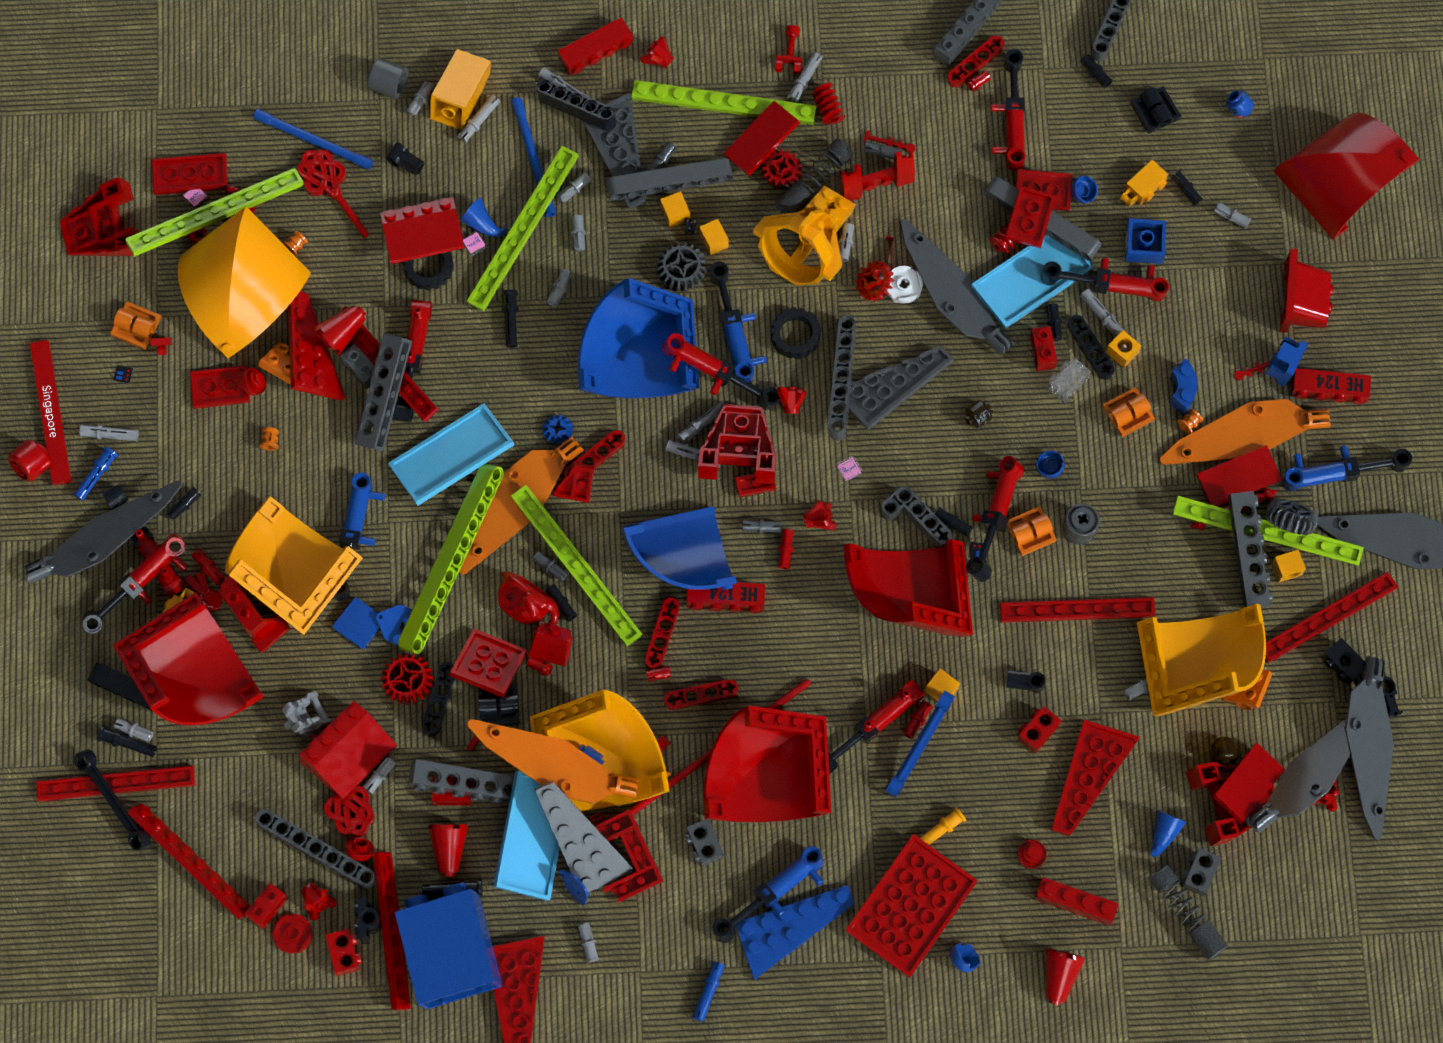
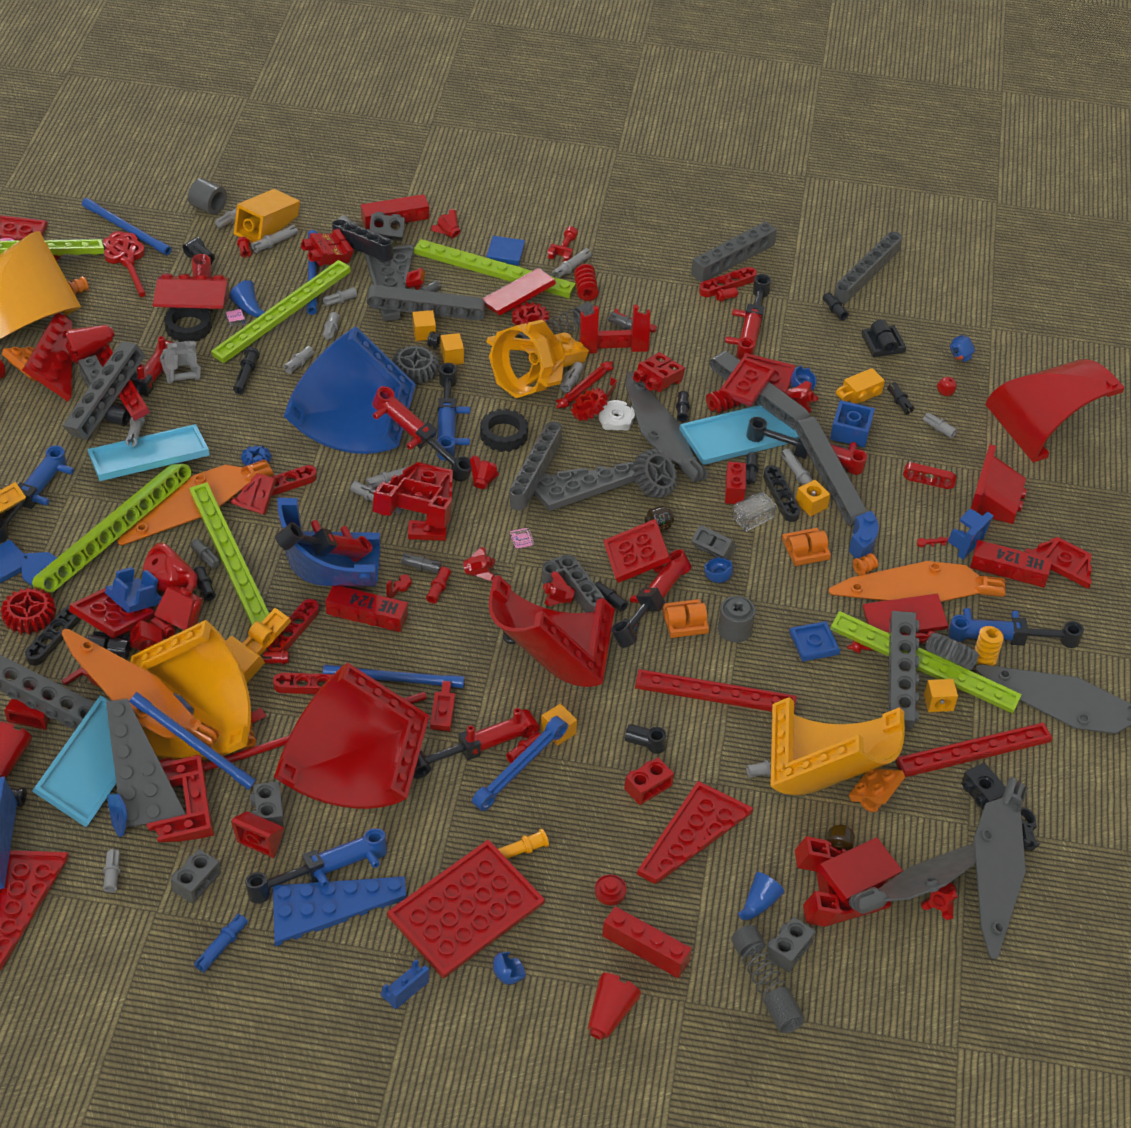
camera: 10 degrees right, 25 degrees down
(417, 177) = (201, 265): none -> red piece
(428, 434) = (134, 430): none -> light grey pin
(440, 323) = (180, 354): none -> light grey piece
(449, 137) = (243, 243): none -> red pin
(500, 634) = (134, 593): none -> blue panel
(530, 684) = (145, 635): none -> red brick
(542, 124) = (327, 248): none -> red hips
(573, 784) = (148, 708): none -> blue piece
(595, 82) = (386, 231): none -> dark grey brick
(629, 682) = (260, 637): none -> light orange plate
(647, 144) = (415, 278): none -> red tile
(668, 932) = (198, 877): none -> dark grey brick
(674, 549) = (325, 542): none -> piece
(707, 874) = (257, 833): none -> red slope
(728, 72) = (506, 250): none -> blue tile
(748, 557) = (399, 586): none -> red piece
(825, 660) = (456, 681): none -> blue piece
(830, 694) = (443, 708): none -> red plate
(861, 249) = (584, 385): none -> red wheel
(879, 993) = (406, 985): none -> blue hinge
(902, 530) = (557, 590): none -> red rock
(932, 224) = (658, 373): none -> red hips
(963, 361) = (650, 474): none -> dark grey gear
(967, 464) = (636, 550): none -> red plate
(968, 255) = (682, 406): none -> black pin
(1039, 435) = (713, 543): none -> dark grey brick
(1087, 214) = (803, 395): none -> red rock
(1136, 314) = (830, 469): none -> dark grey beam
(1158, 528) = (814, 641): none -> blue plate
(1231, 160) = (947, 386): none -> red piece
(1233, 289) = (943, 474): none -> red beam
(1325, 499) = (989, 645): none -> light orange piece
(1384, 365) = (1066, 560): none -> red wing

